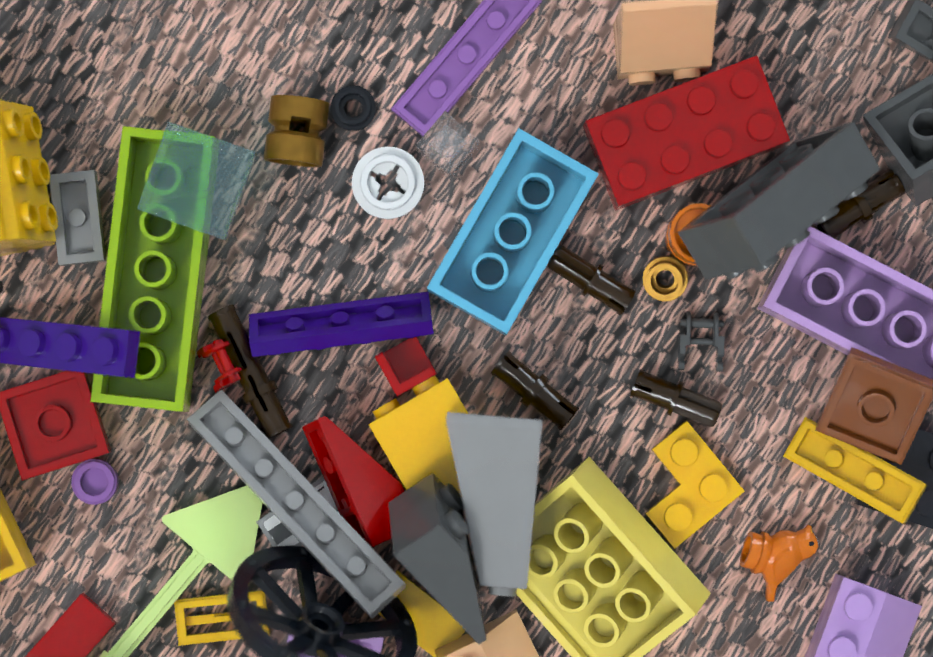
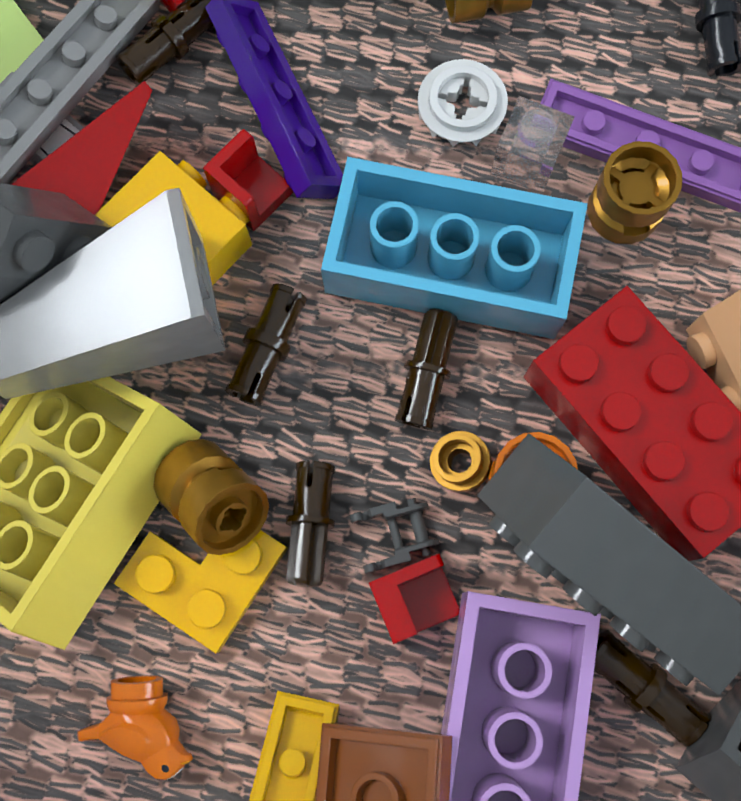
camera: 75 degrees right, 10 degrees down
(348, 94) = (540, 25): black plate -> none
(511, 85) = (634, 192): none -> pearl gold wheel
(639, 461) = (211, 496): none -> pearl gold wheel
(750, 342) = (414, 598): none -> red panel

